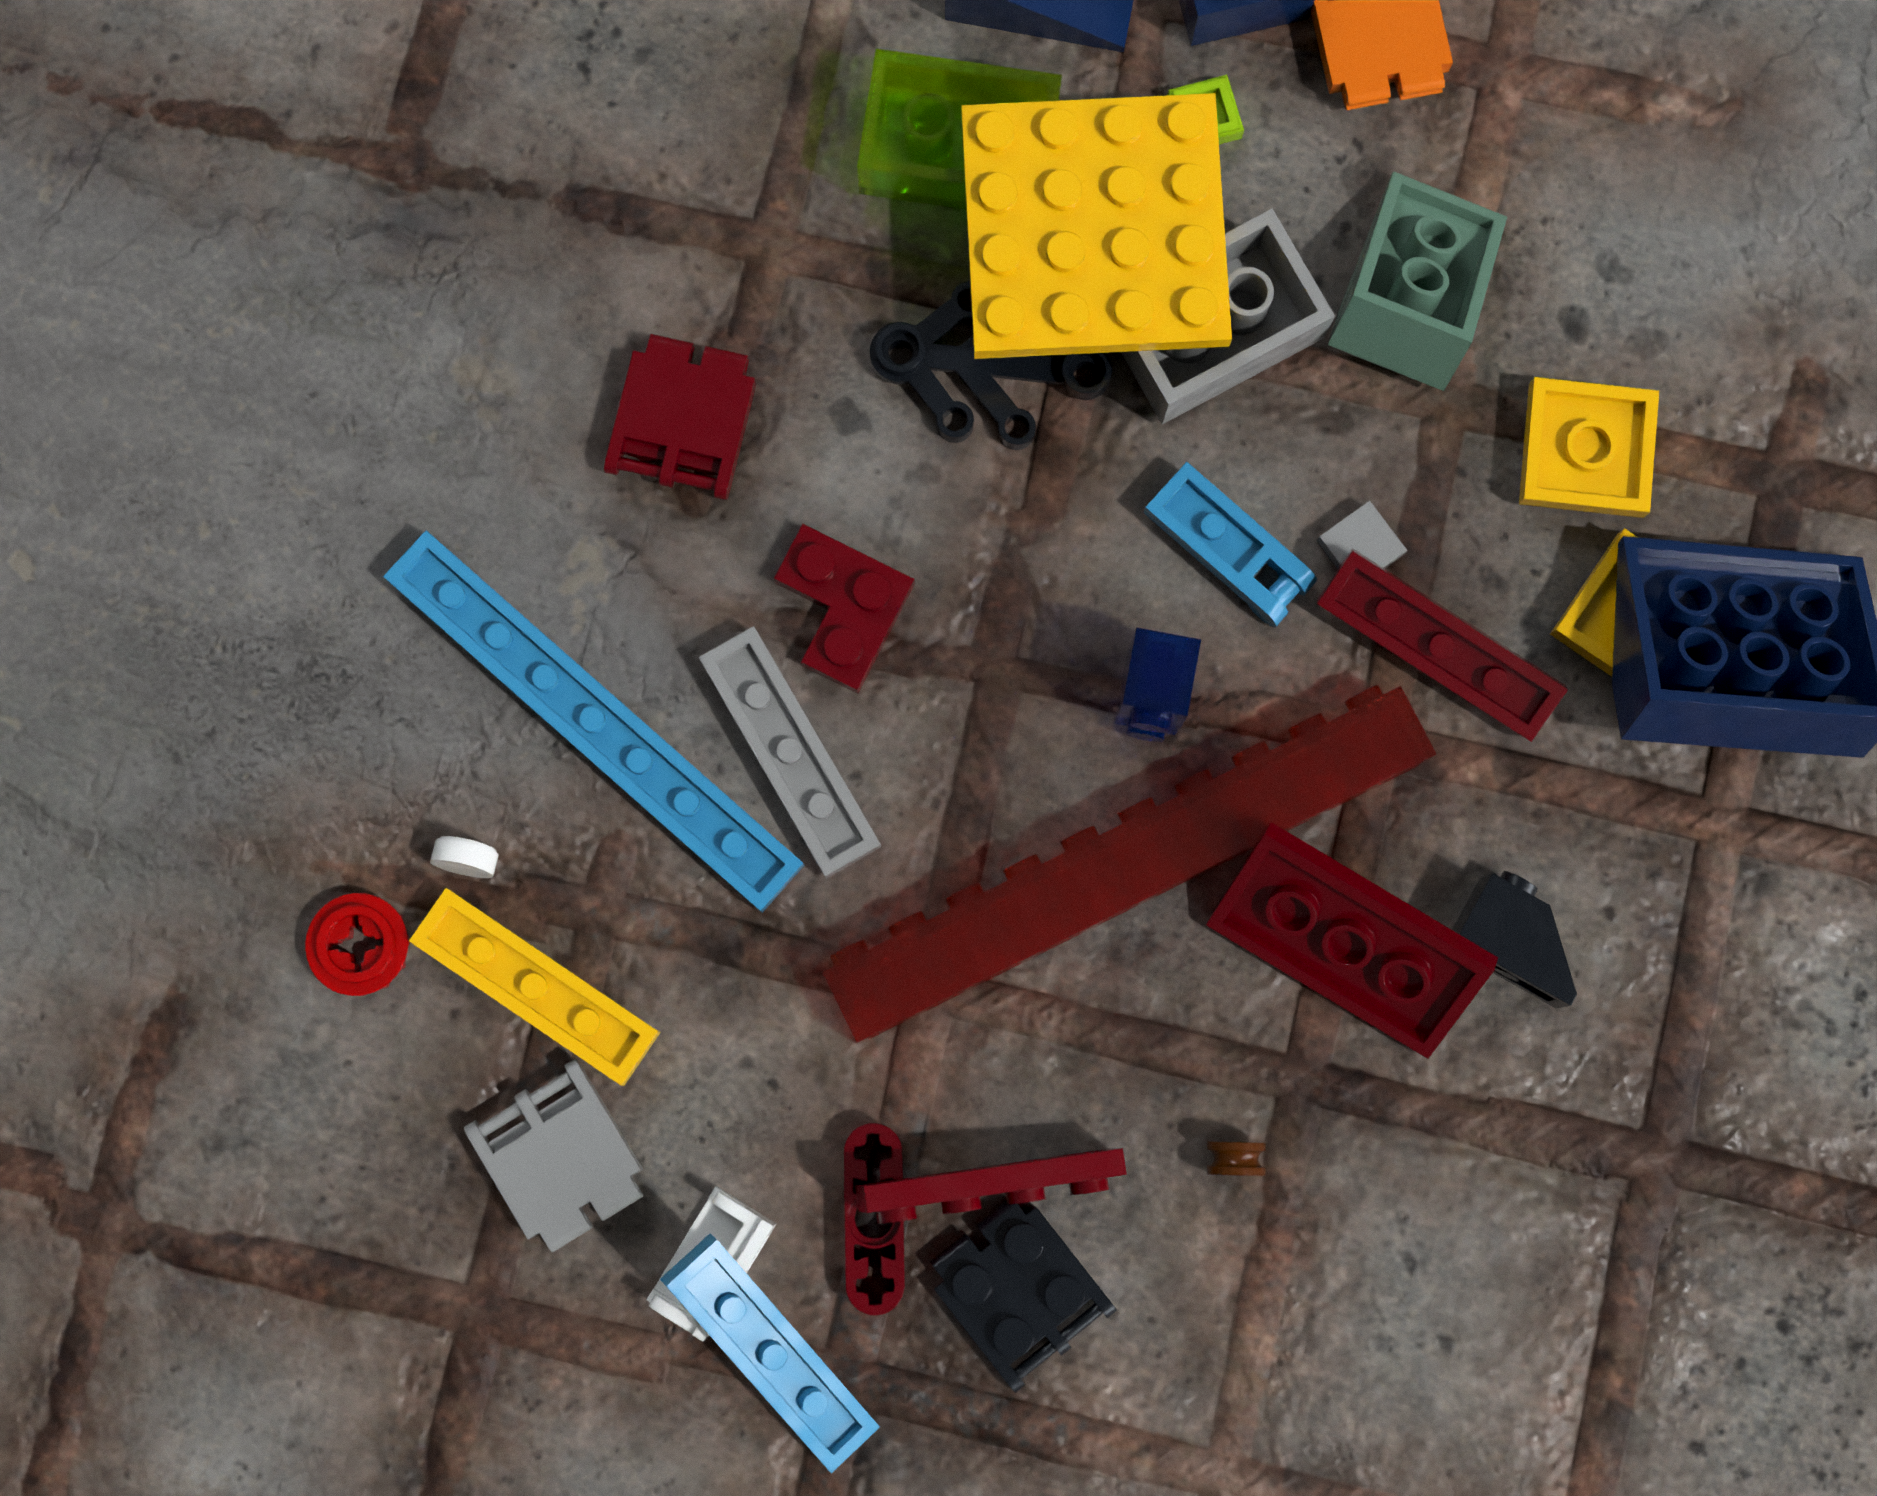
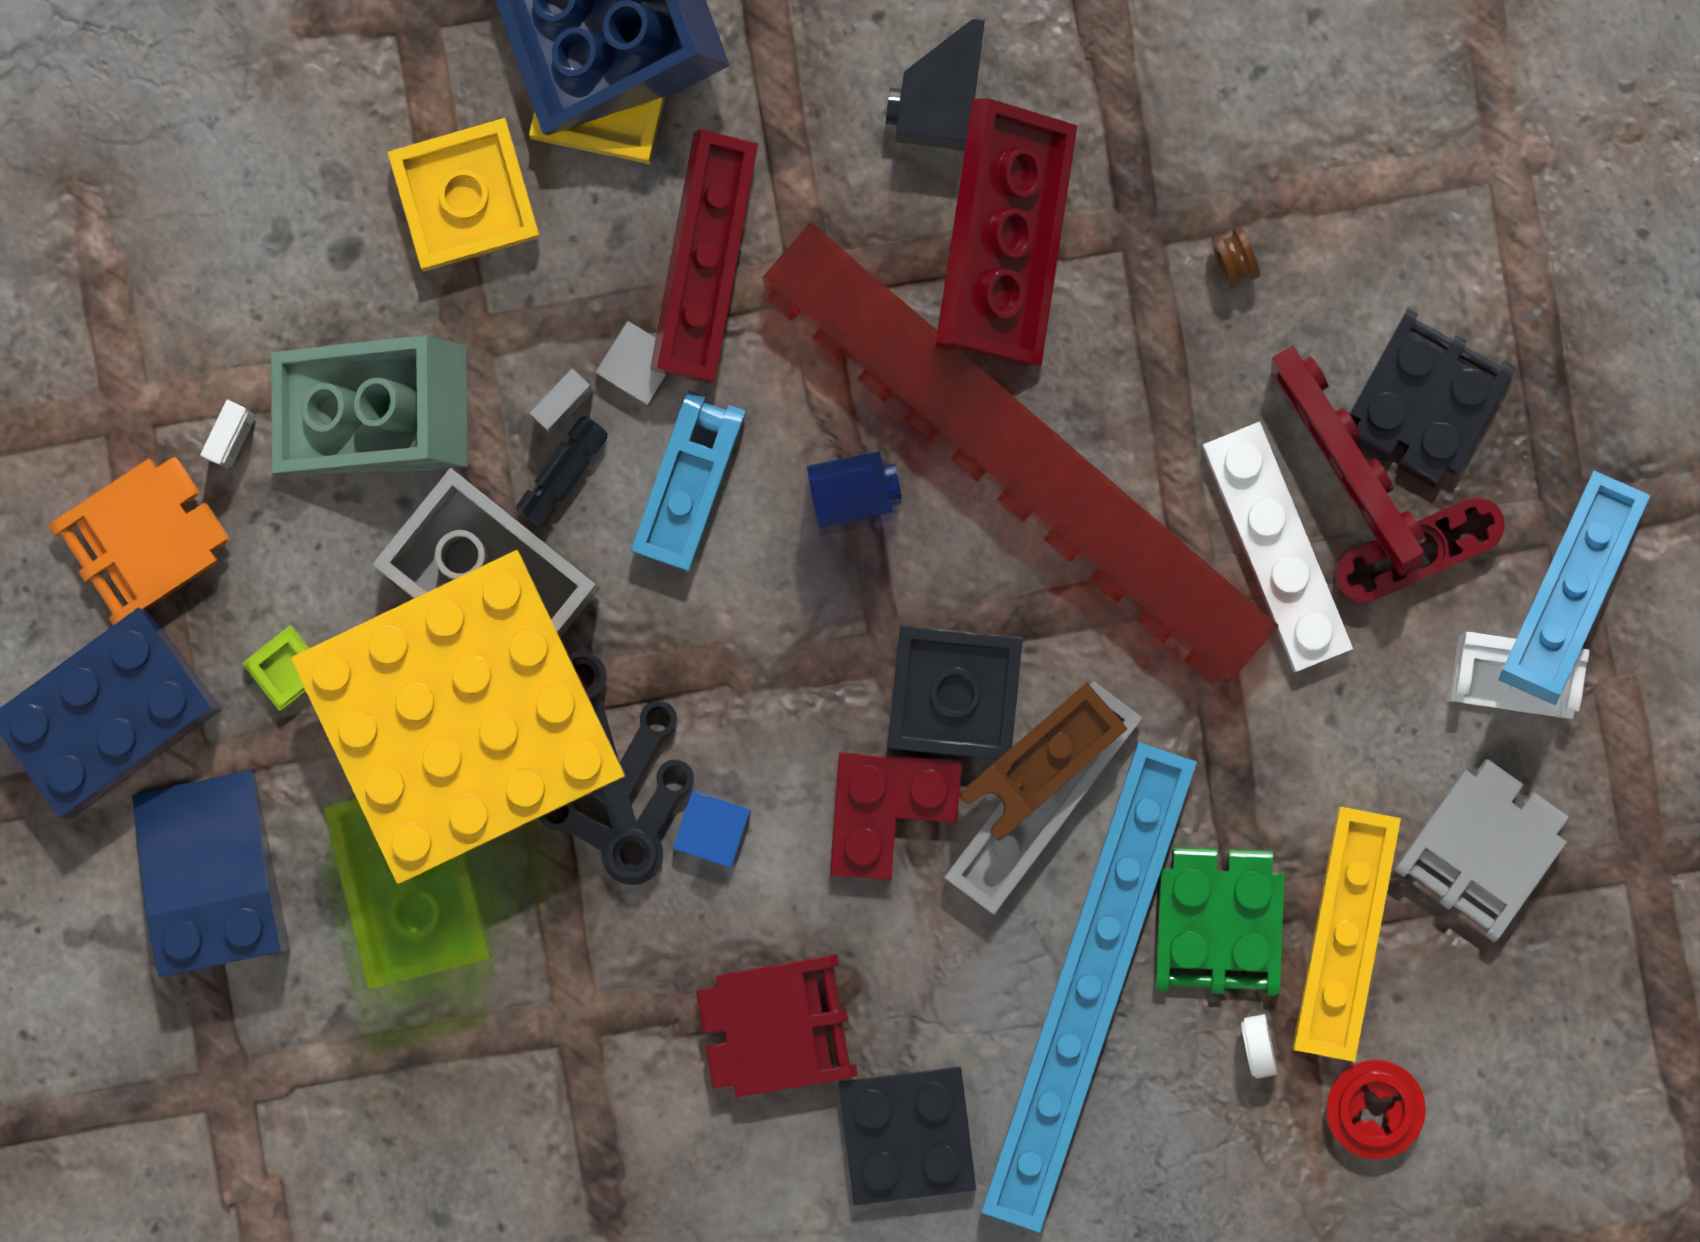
camera: 110 degrees left, 5 degrees up
(530, 497) = (907, 1135): none -> black plate
(601, 872) = (1220, 920): none -> green plate
(824, 764) = (1047, 757): none -> reddish brown plate
(893, 435) = (711, 829): none -> blue tile
(924, 710) = (955, 692): none -> black plate
(935, 1080) = (1277, 547): none -> white plate
(1287, 433) = (561, 471): none -> black axle
(1354, 456) = (561, 402): none -> light grey tile
(1446, 142) = (228, 434): none -> white tile

